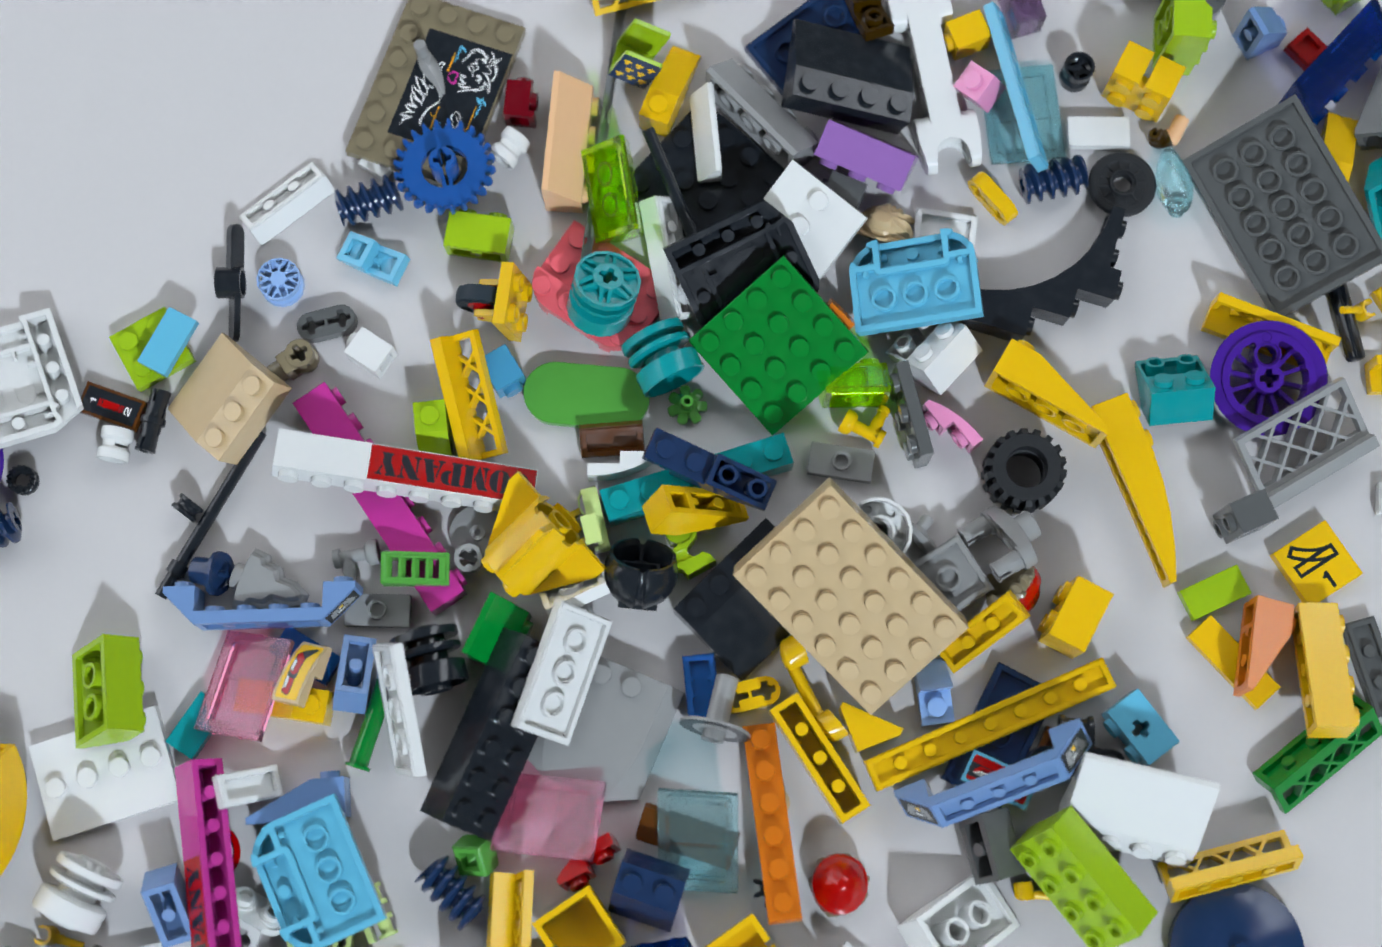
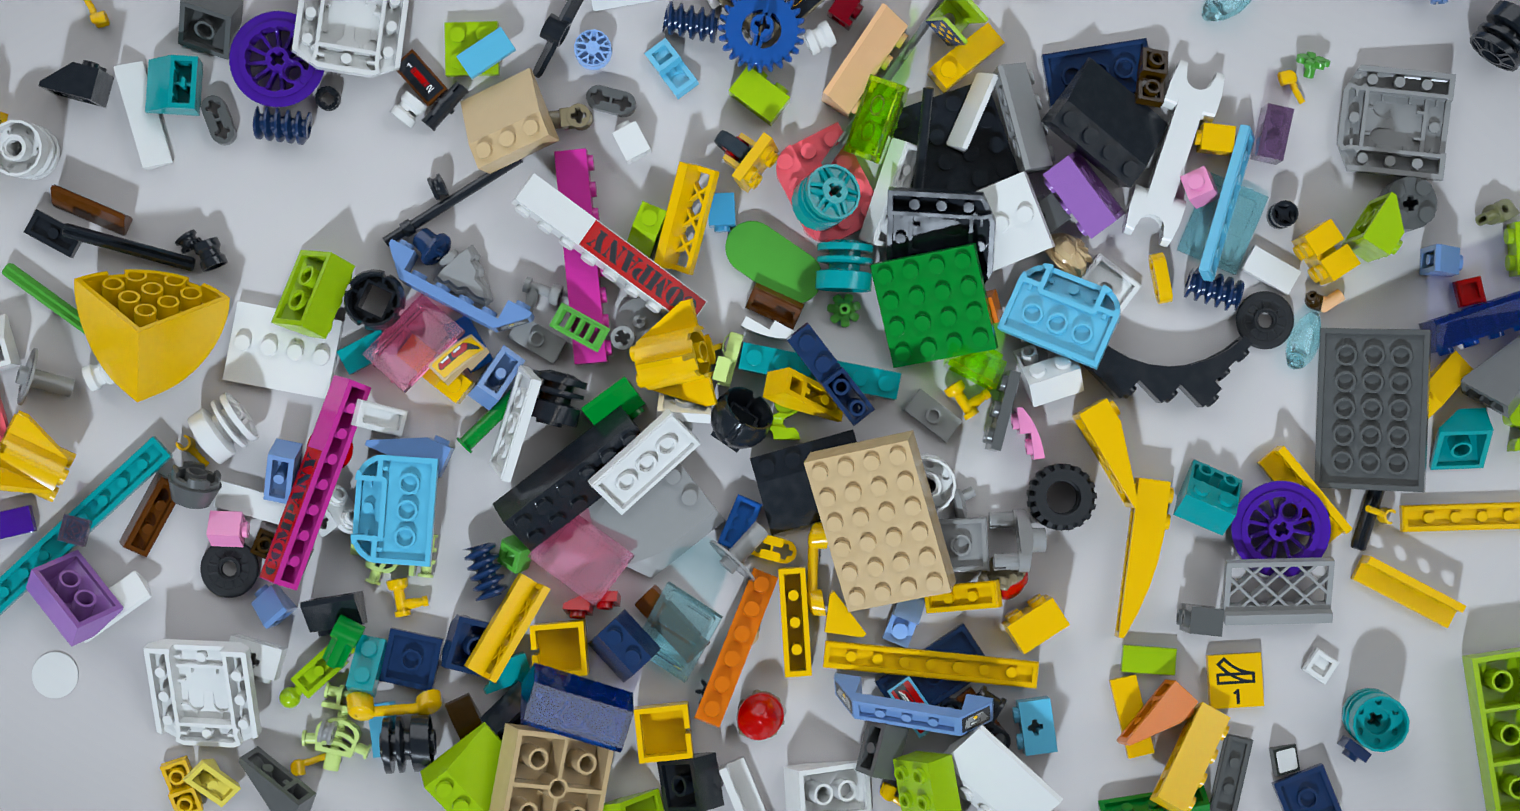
camera: 20 degrees right, 10 degrees up
(156, 660) = (358, 292): none -> black piece

